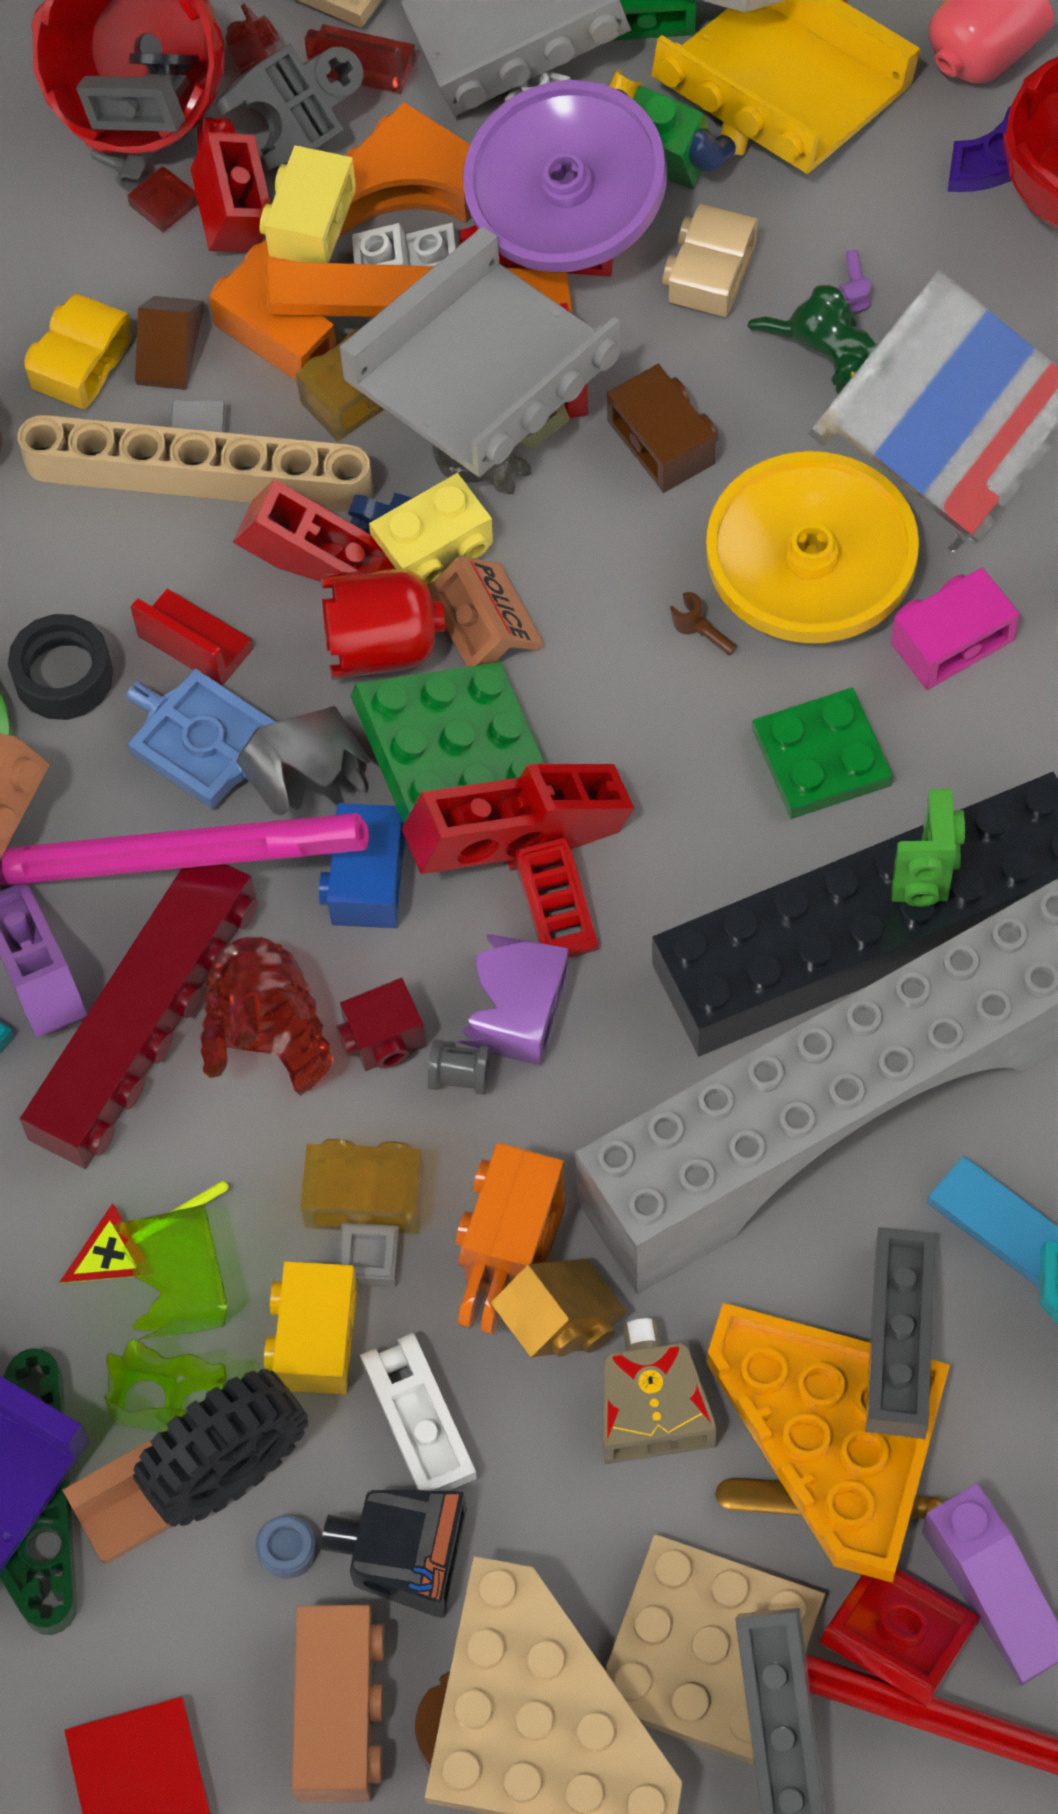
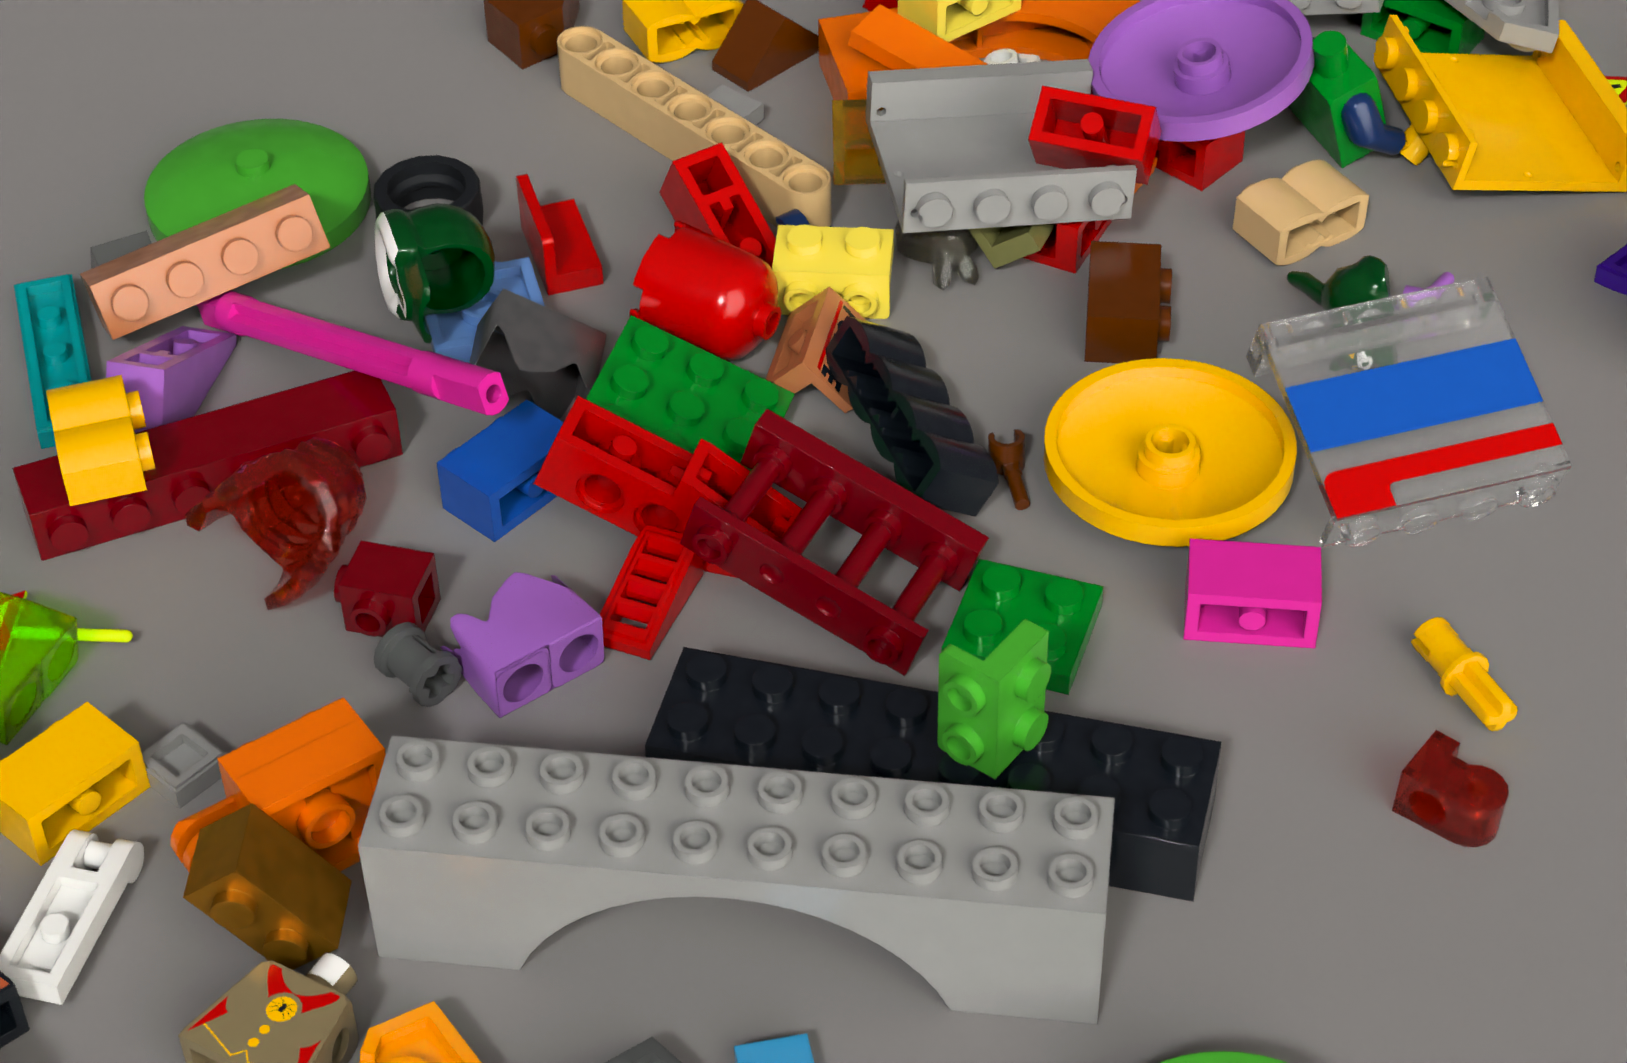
camera: 35 degrees right, 20 degrees down
(79, 1056) = (98, 440): none -> yellow brick
(153, 734) = (432, 262): none -> dark green piece
(362, 1185) = (224, 691): clear yellow brick -> none
(560, 304) = (1093, 131): none -> red brick
(618, 637) = (911, 416): none -> black brick
(682, 735) = (861, 500): none -> dark red fence

